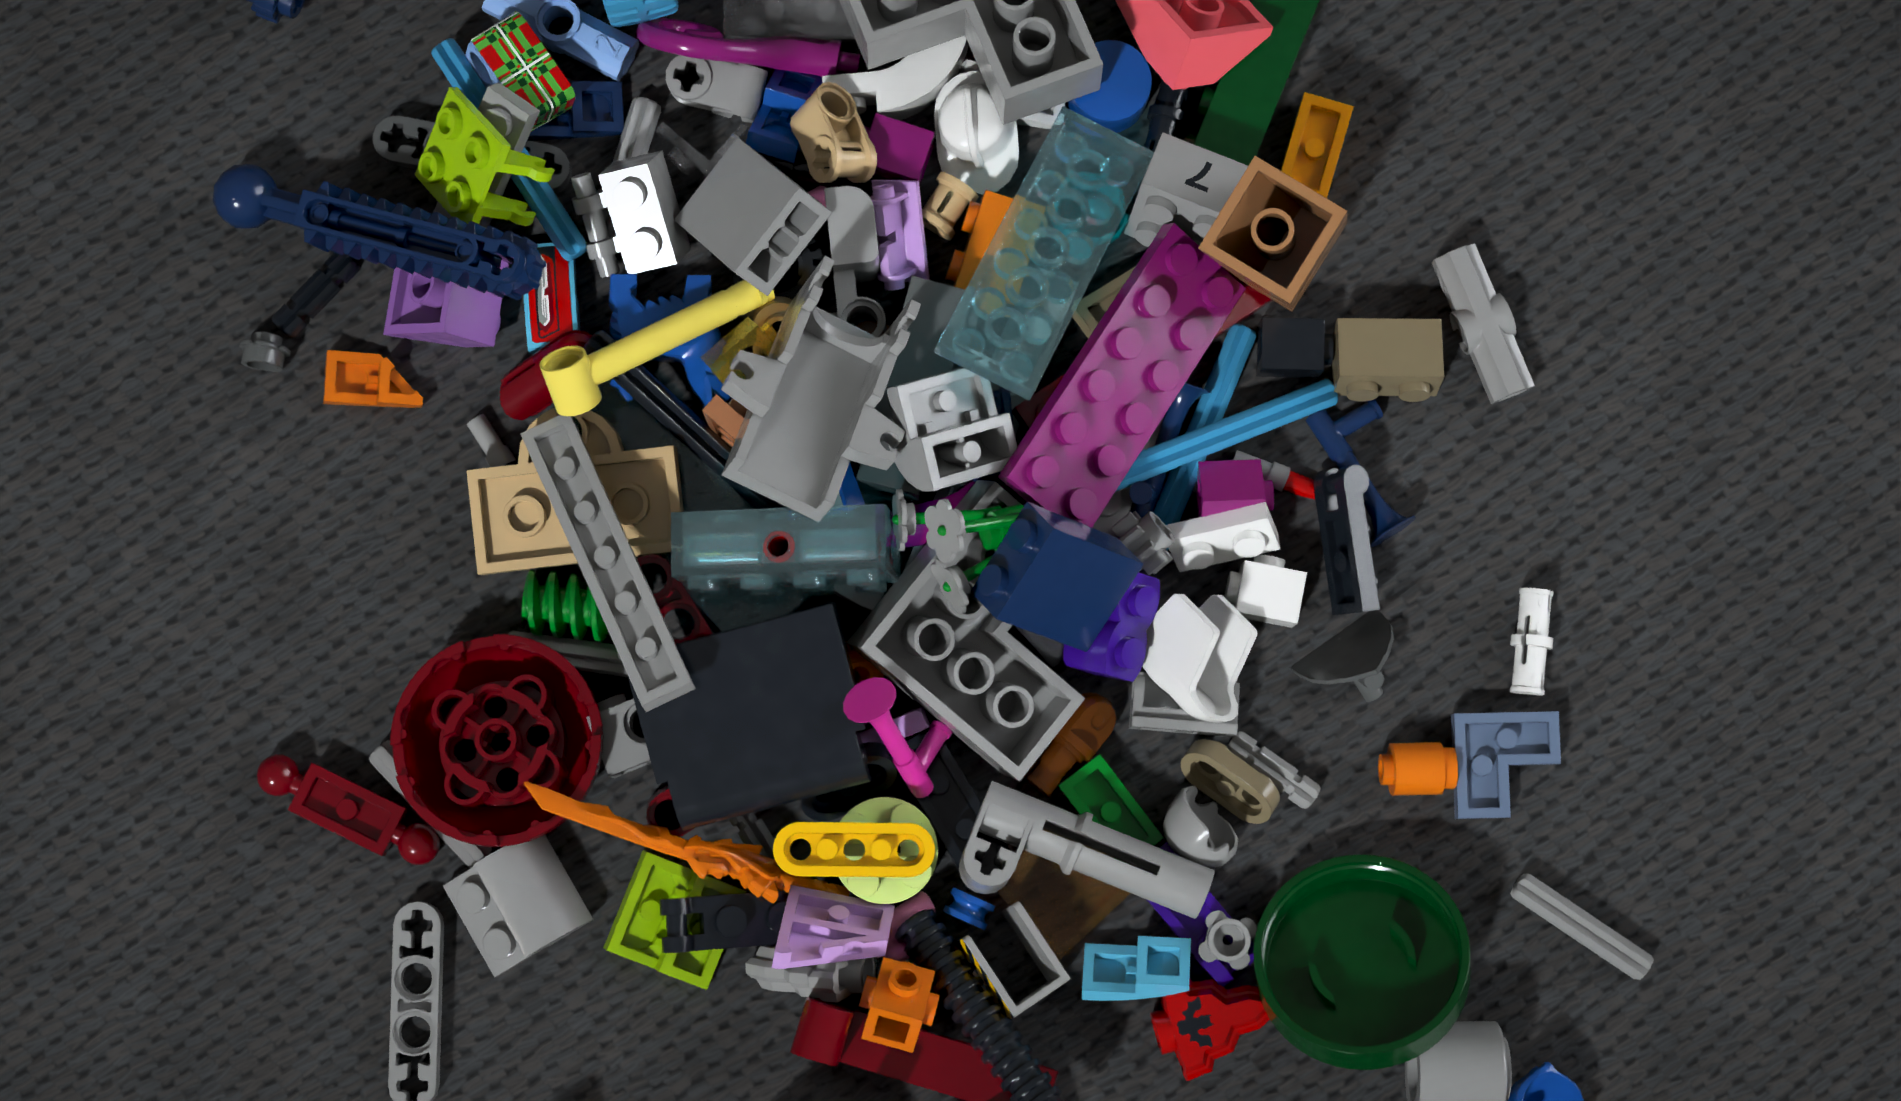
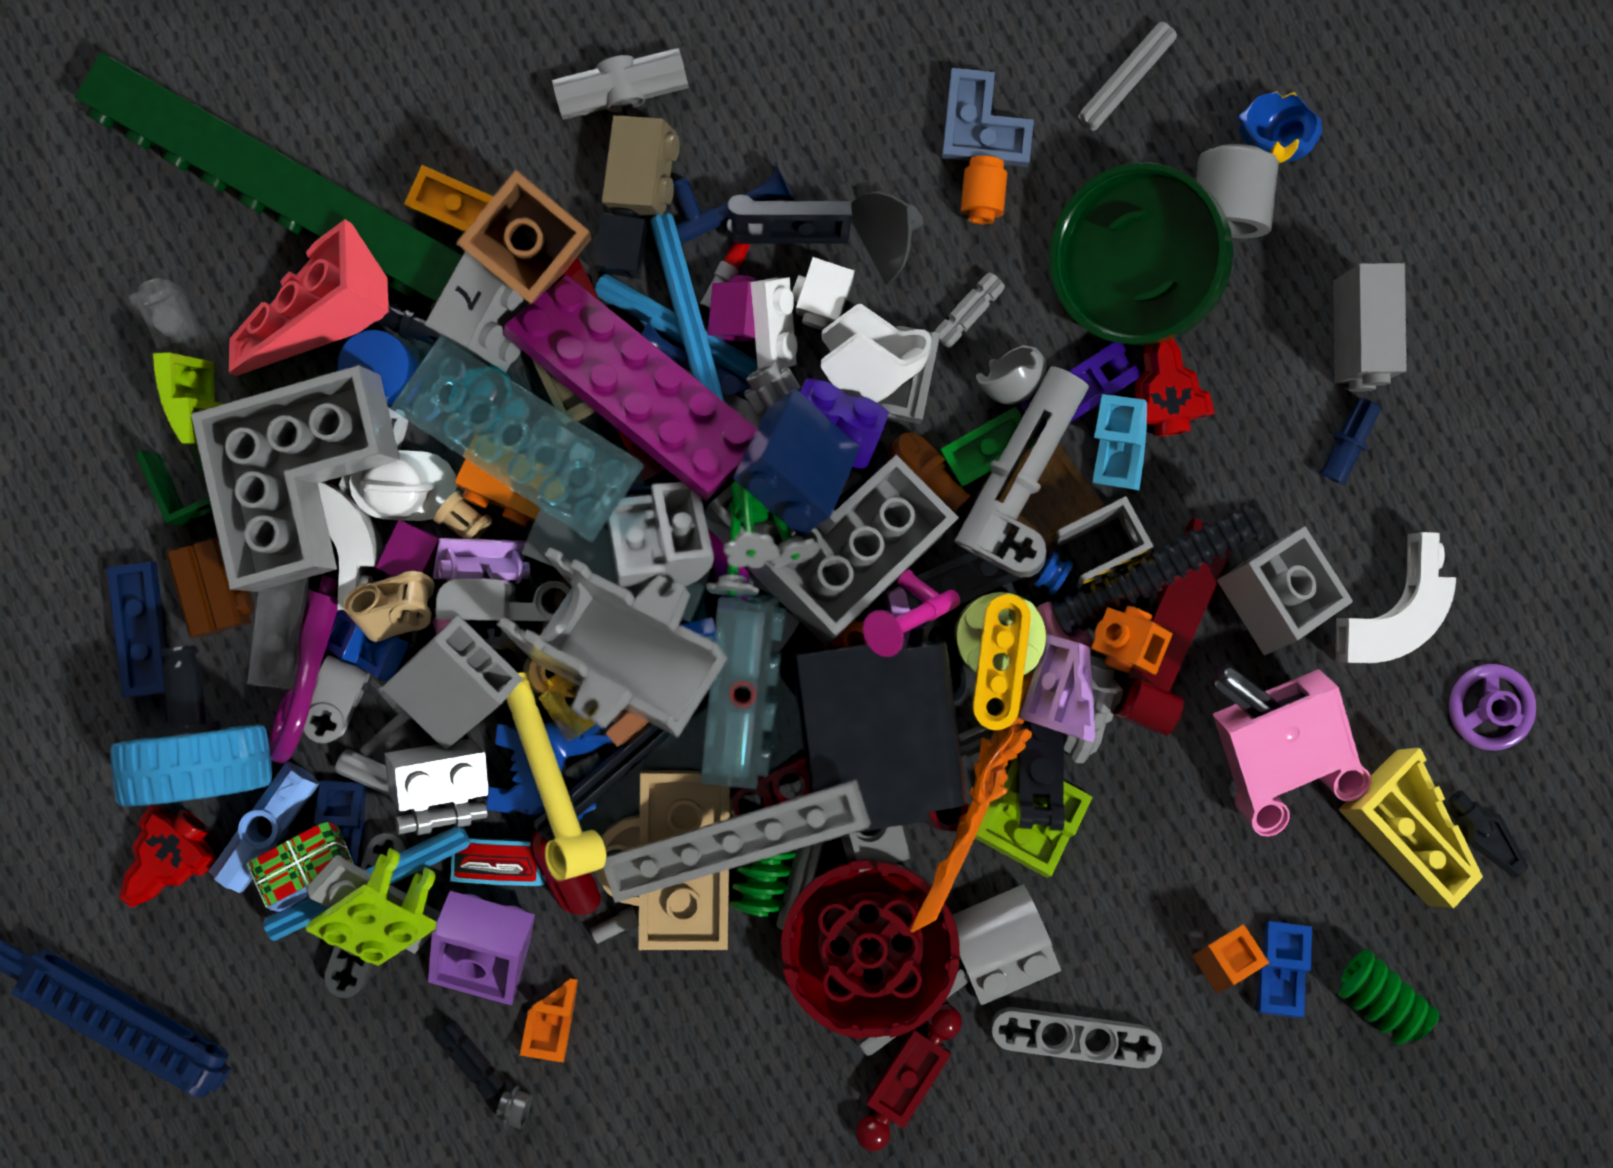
camera: 85 degrees left, 5 degrees up
(384, 232) = (426, 999): dark blue gear -> none
(1230, 781) = (975, 345): dark tan plate -> none
(1241, 932) = (1117, 356): light grey plate -> none
(1531, 641) = (890, 82): white pin -> none

